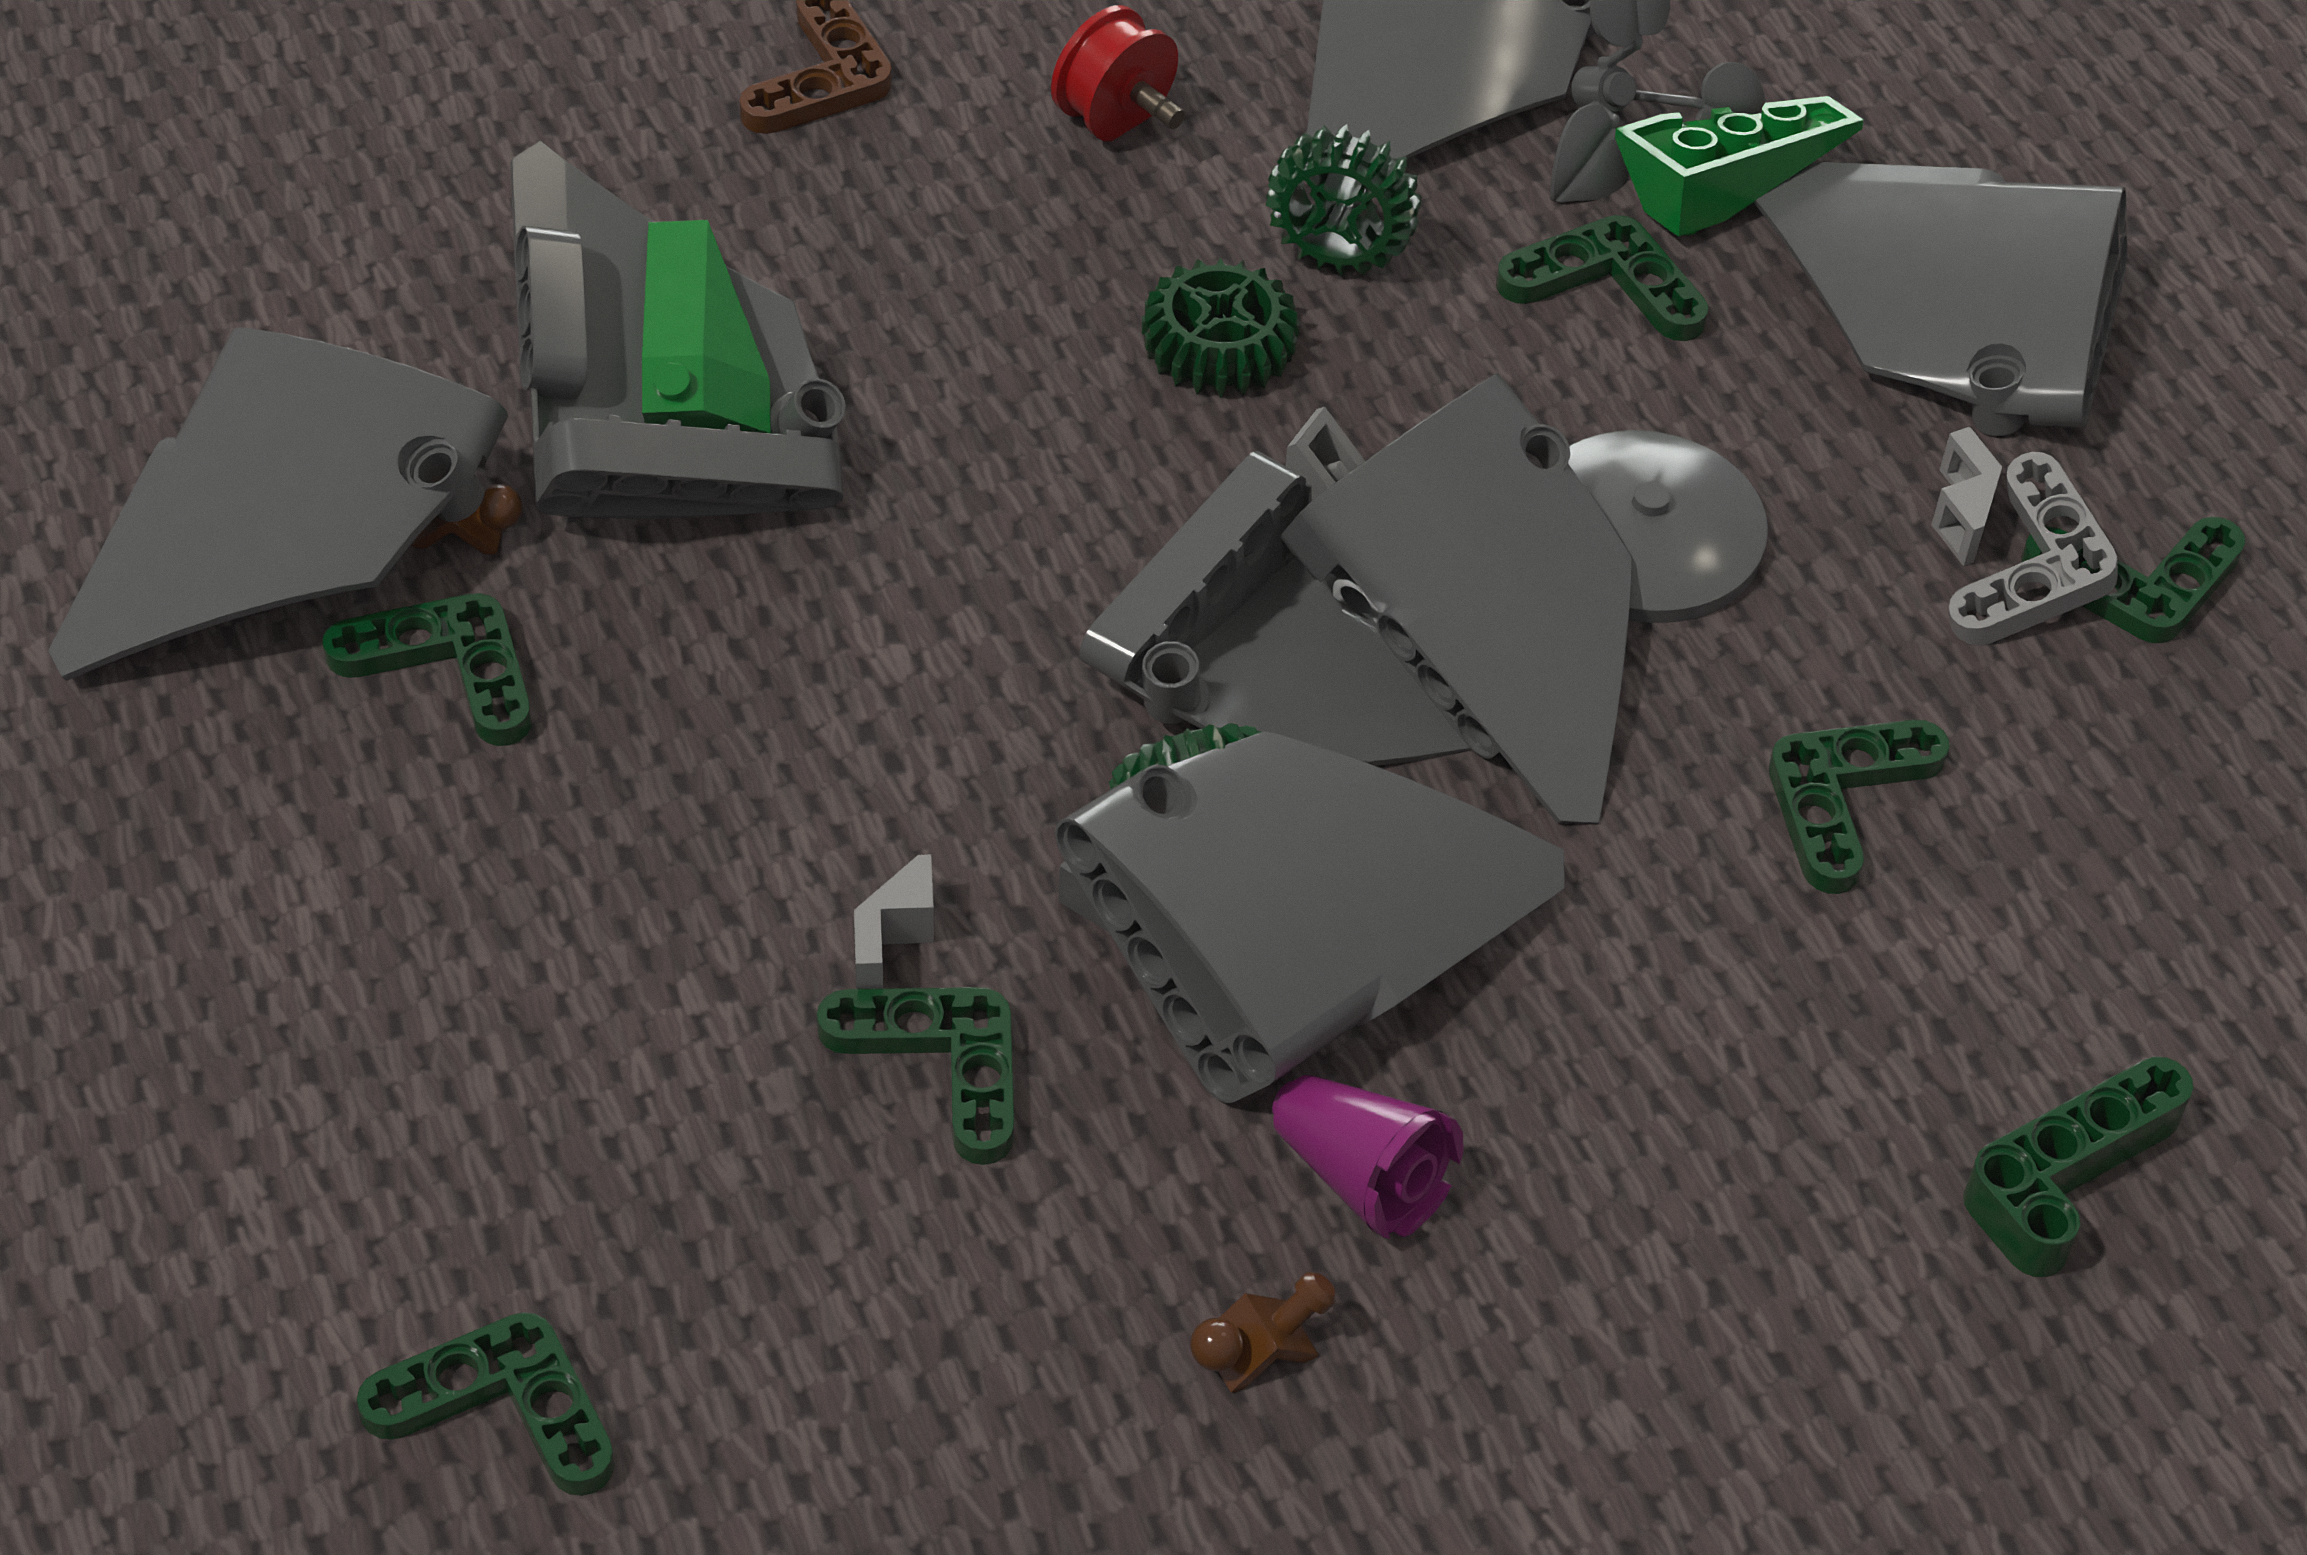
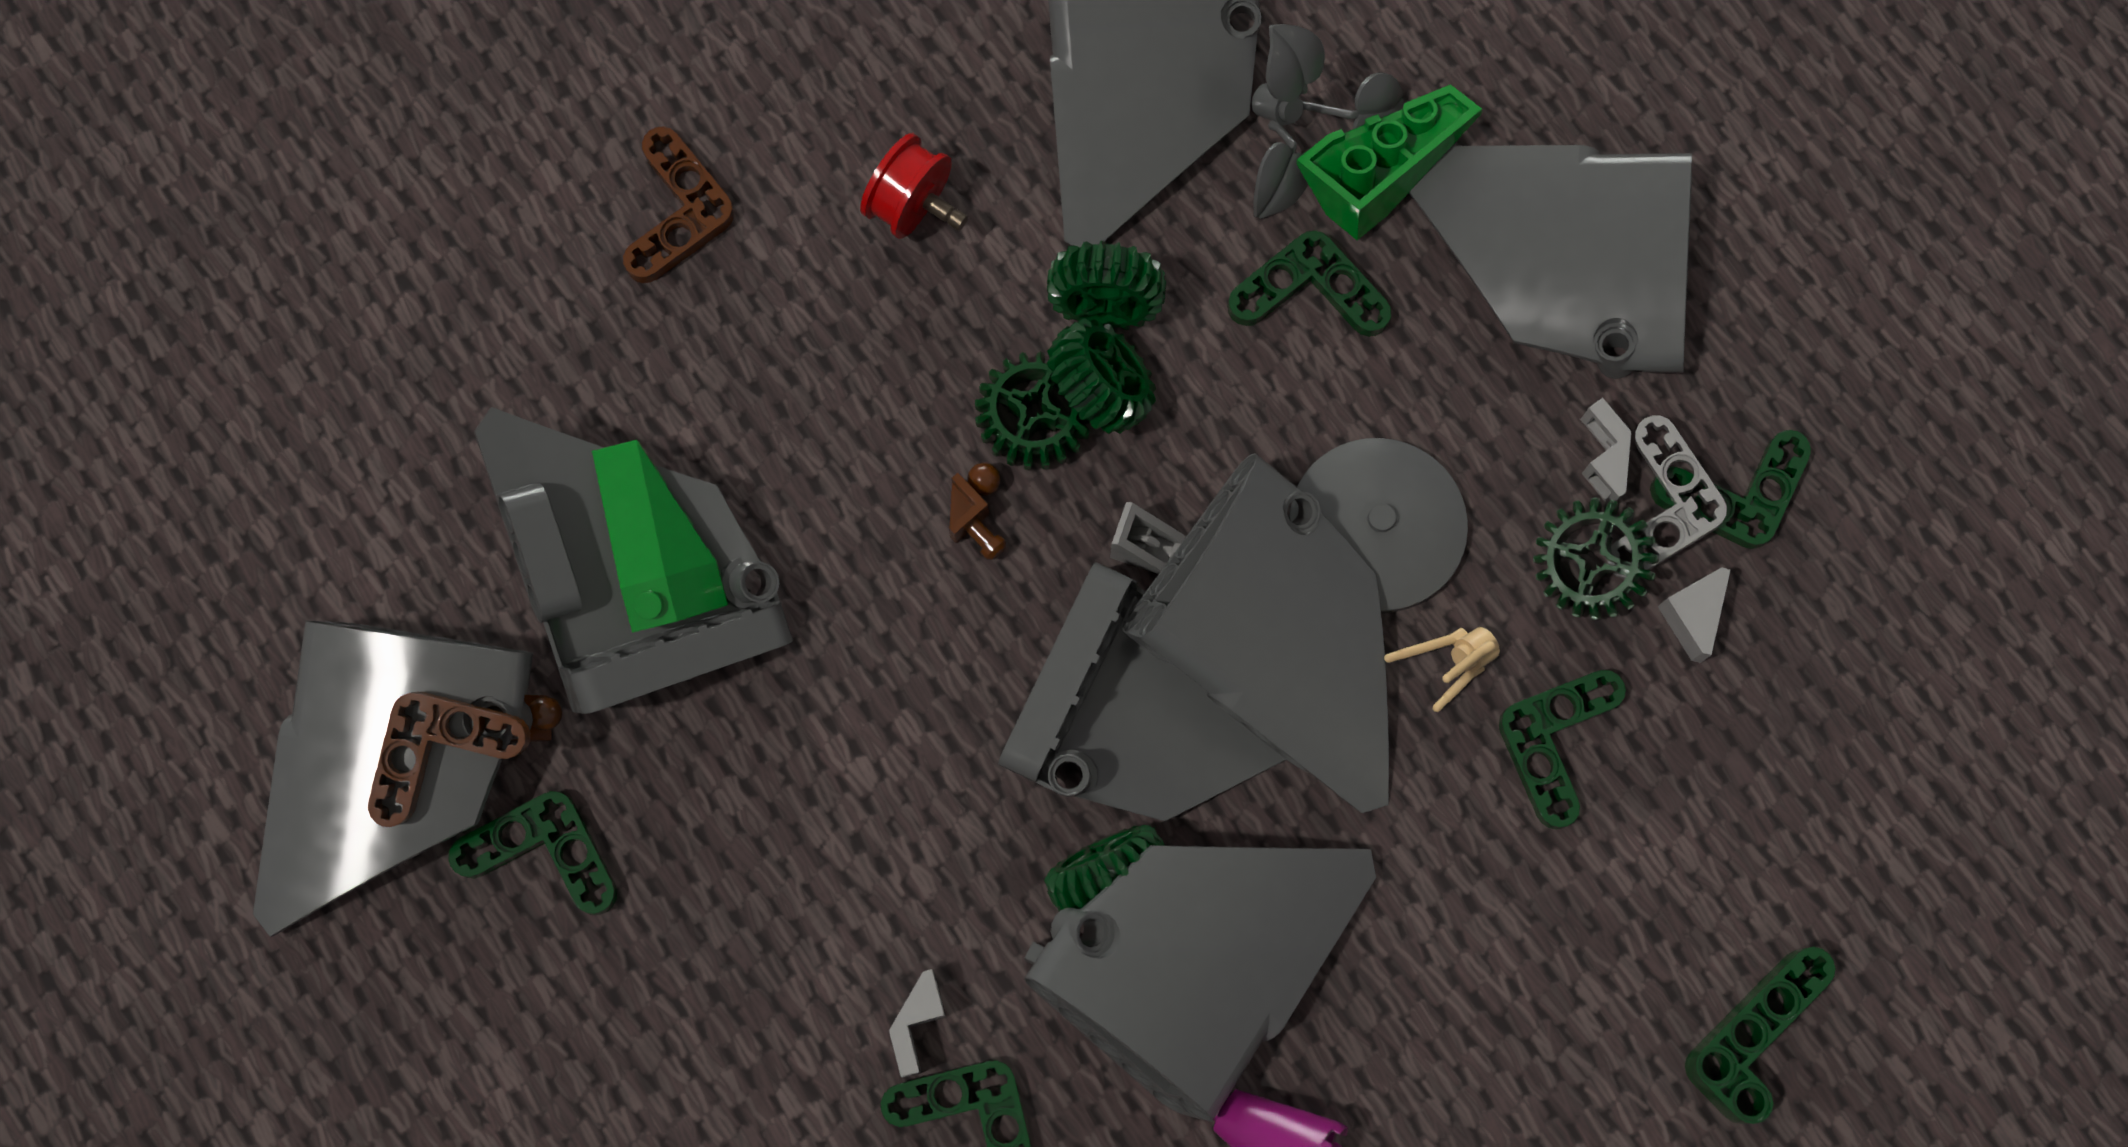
camera: 10 degrees left, 25 degrees up
(353, 451) = (433, 729): none -> reddish brown beam
(1112, 406) = (970, 508): none -> reddish brown piece
(1315, 287) = (1101, 376): none -> dark green gear
(1742, 668) = (1470, 656): none -> tan plant
(1940, 608) = (1600, 539): none -> dark green gear
(2056, 677) = (1696, 613): none -> light grey slope

